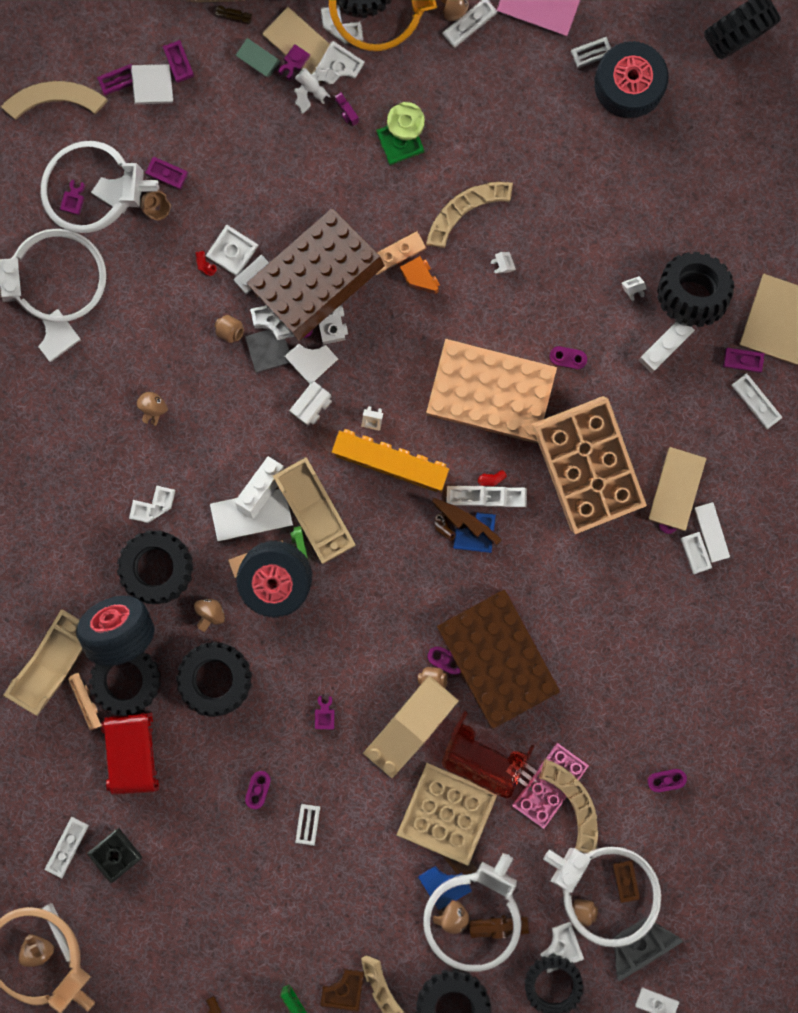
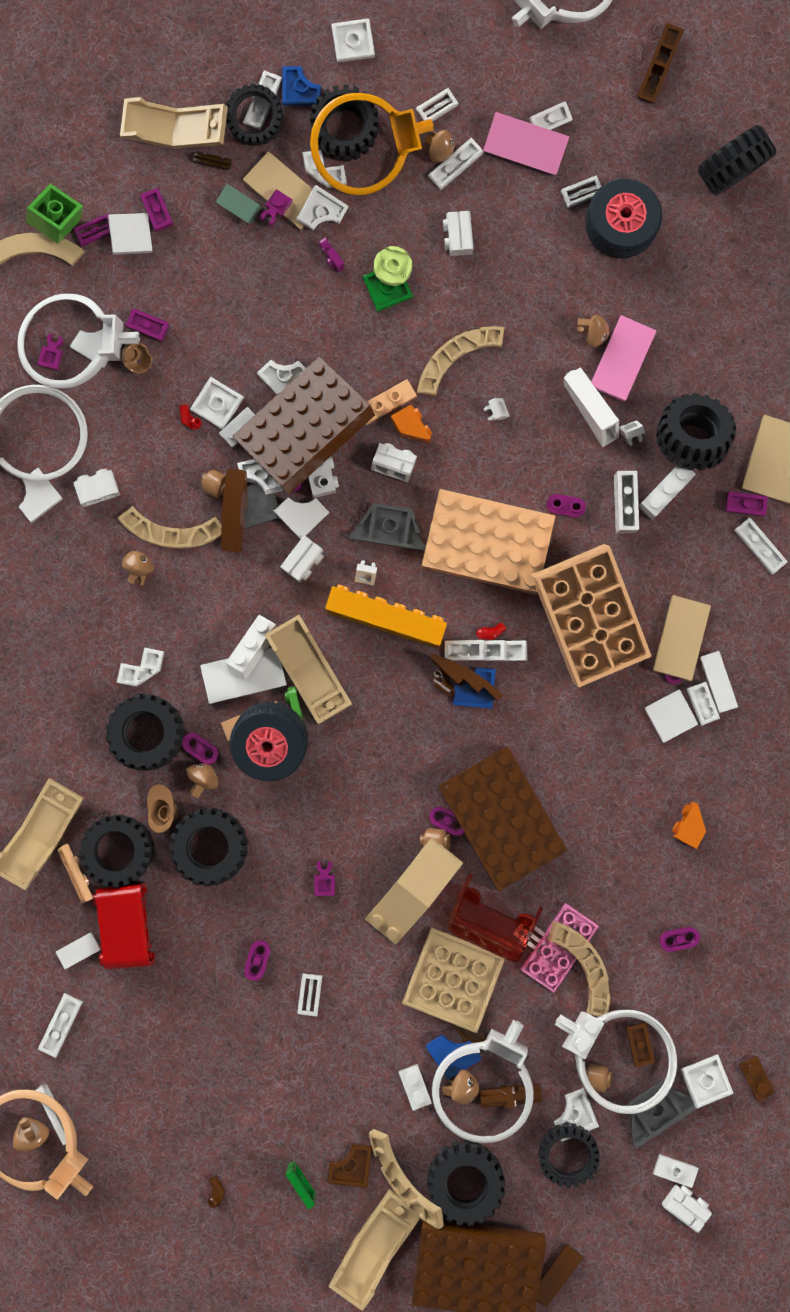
camera: 10 degrees left, 0 degrees up
(79, 63) = (54, 213): none -> bright green brick
(85, 775) = (78, 950): none -> white tile
(114, 329) = (96, 488): none -> white brick
(114, 868) = (108, 1045): pearl dark grey brick -> none
(115, 630) = (105, 799): black wheel -> none
(169, 642) = (161, 808): none -> medium nougat piece
(185, 379) = (170, 537): none -> tan tile
(208, 584) = (200, 748): none -> magenta plate
(245, 354) = (233, 510): none -> reddish brown slope
(292, 225) = (279, 376): none -> white tile
(310, 83) = (293, 229): white animal -> none
(396, 374) = (389, 527): none -> dark grey wing
(402, 311) = (393, 462): none -> white brick
(407, 916) = (415, 1087): none -> white plate
(471, 90) = (459, 233): none -> white brick
(596, 262) = (592, 406): none -> white slope
(602, 187) = (596, 328): none -> medium nougat piece
(626, 355) = (626, 502): none -> white brick
(627, 216) = (623, 358): none -> bright pink tile
(664, 564) = (671, 716): none -> white tile
(681, 673) = (691, 827): none -> orange slope
(689, 918) = (706, 1081): none -> white tile
(738, 917) = (757, 1078): none -> reddish brown plate

